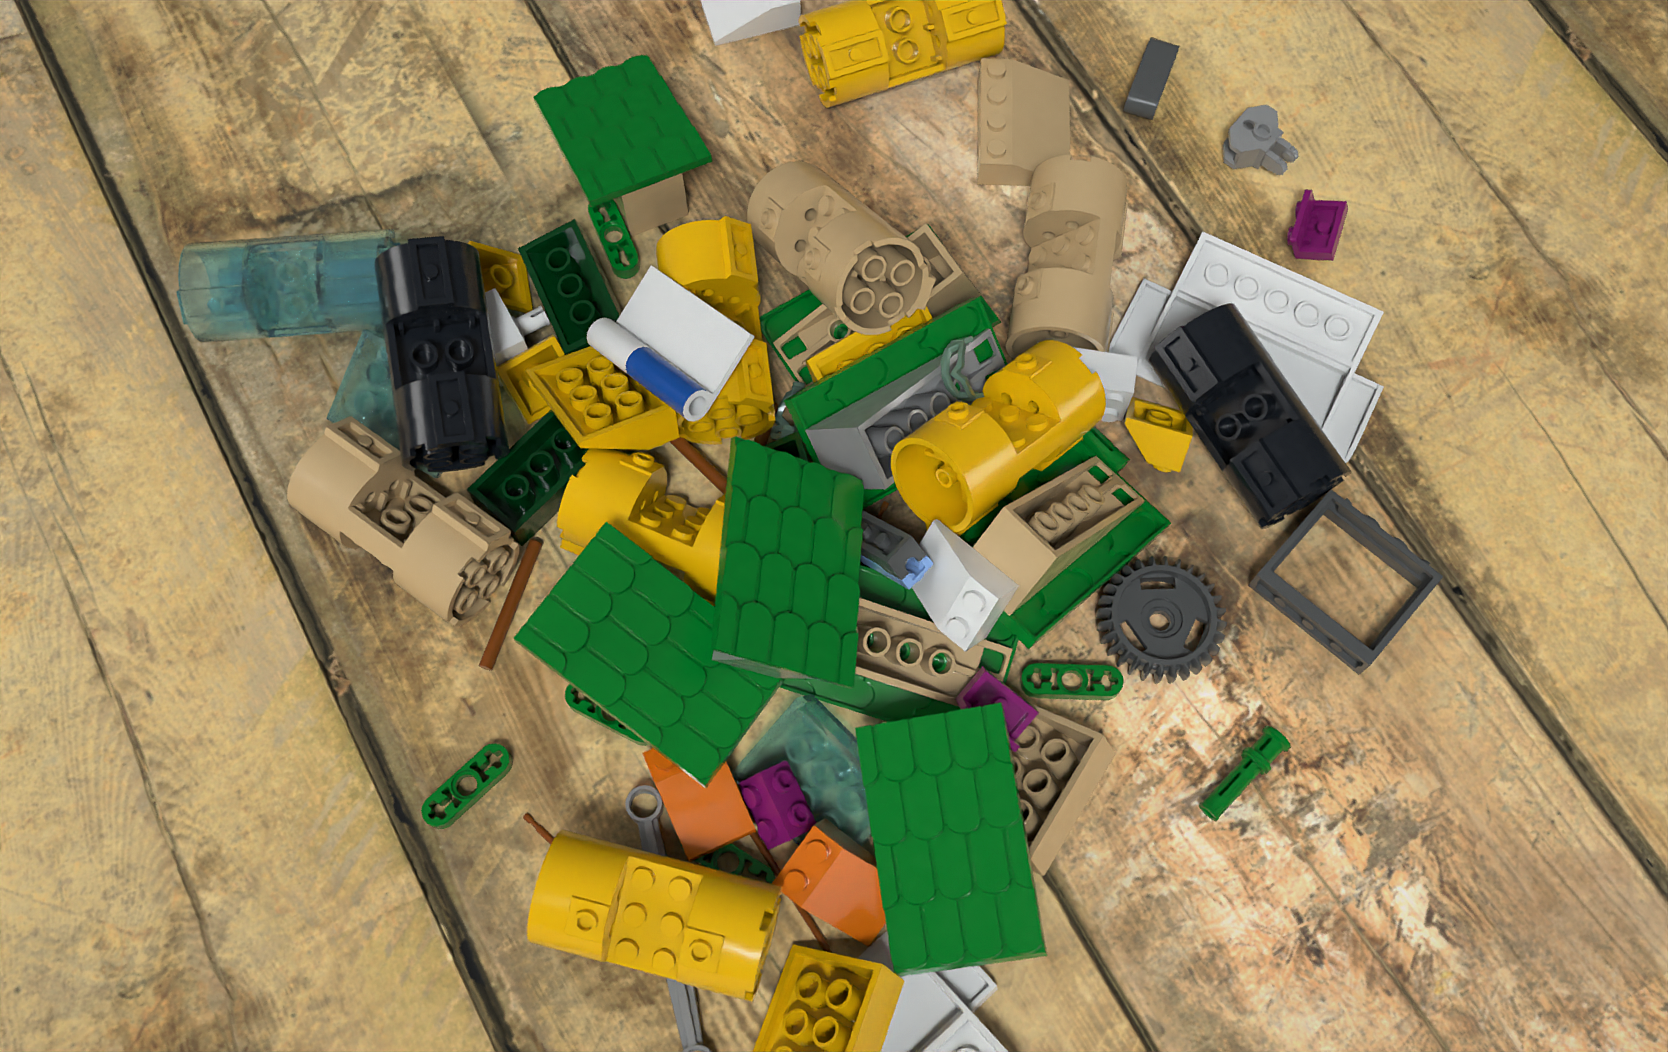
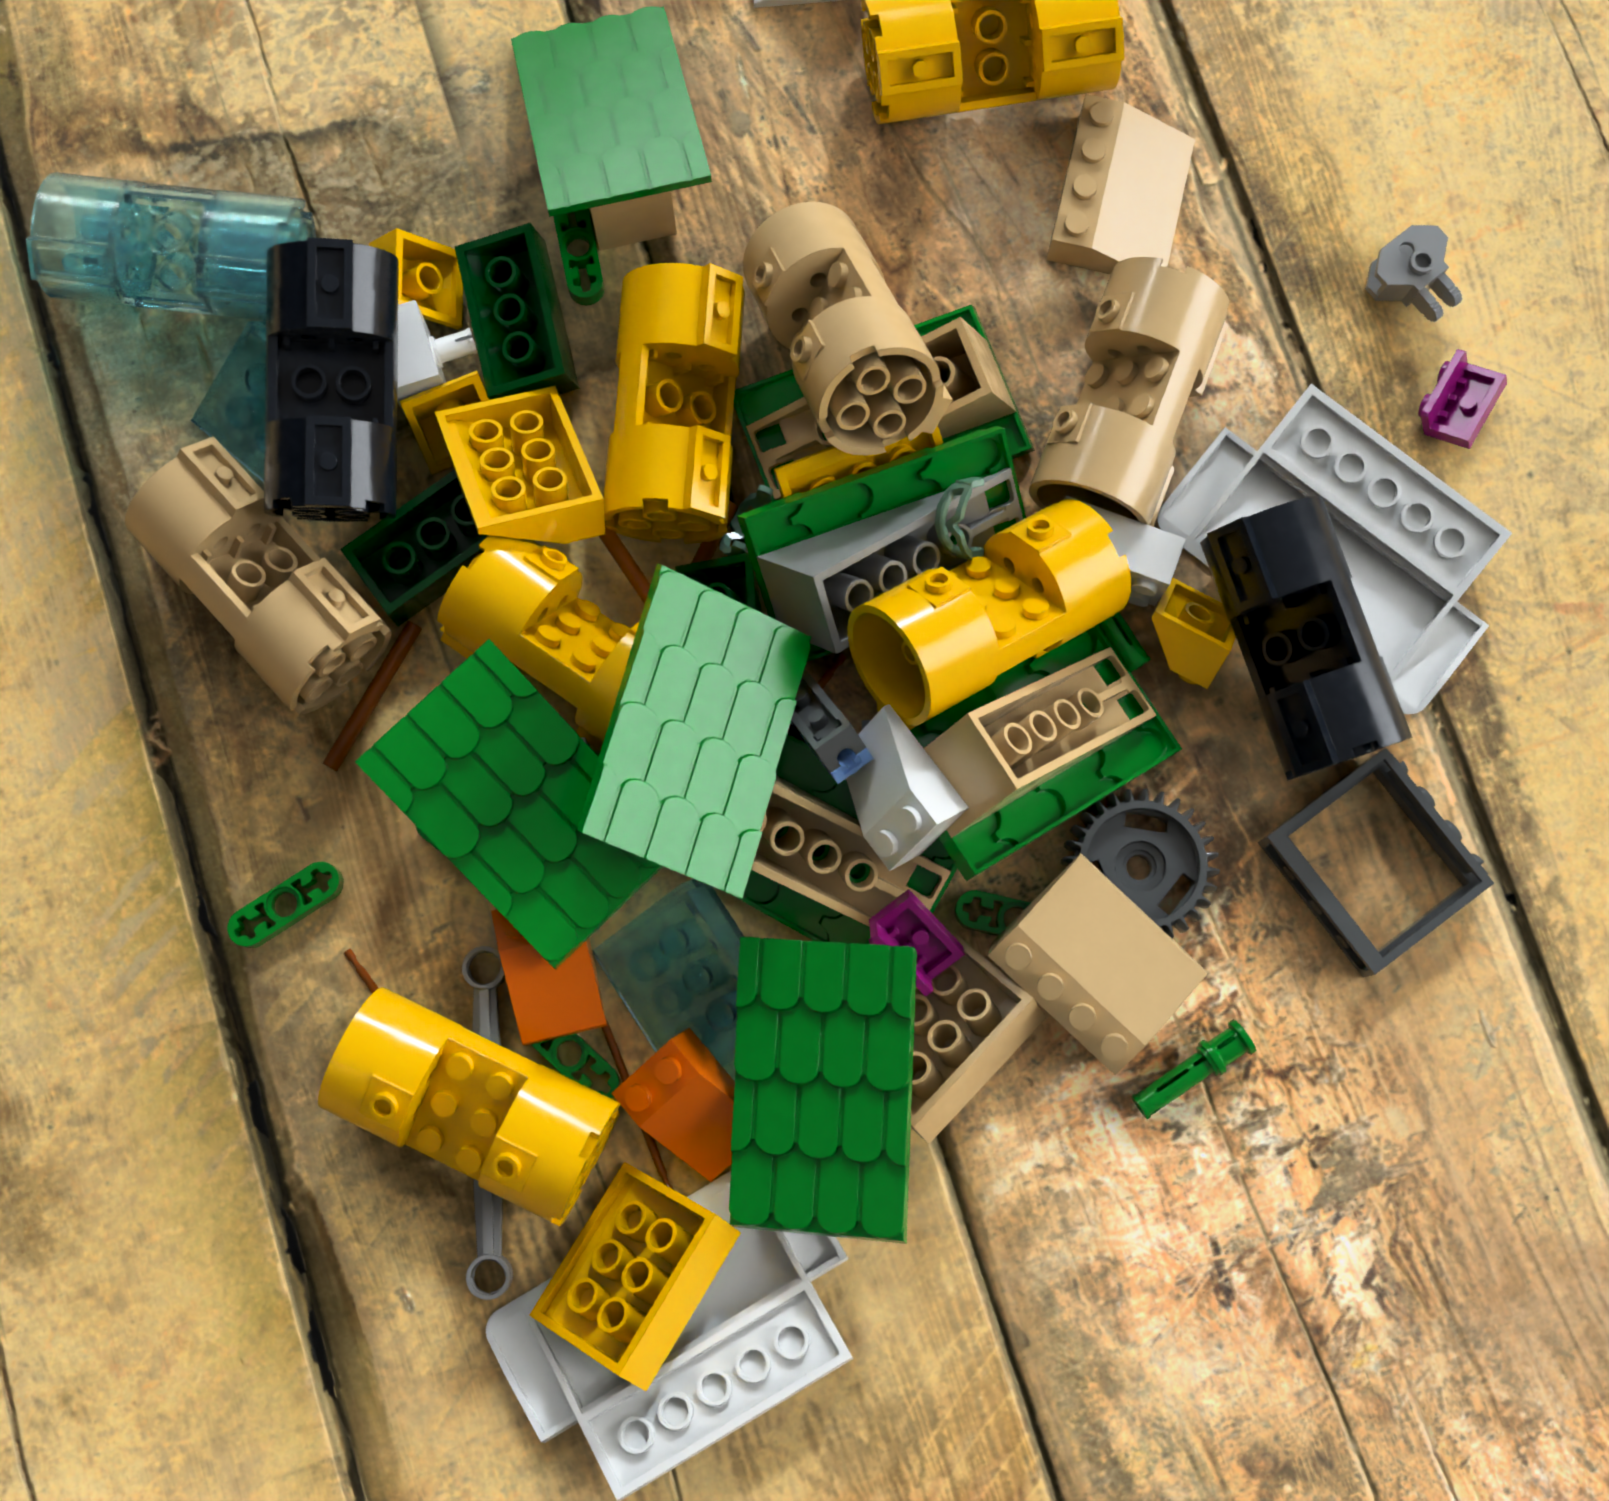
camera: 10 degrees right, 10 degrees up
(672, 344) = (614, 419): white door -> none
(777, 805) = (637, 1001): magenta bracket -> none
(1147, 699) = (1097, 963): none -> tan slope
(1151, 78) = (1300, 157): dark grey beam -> none

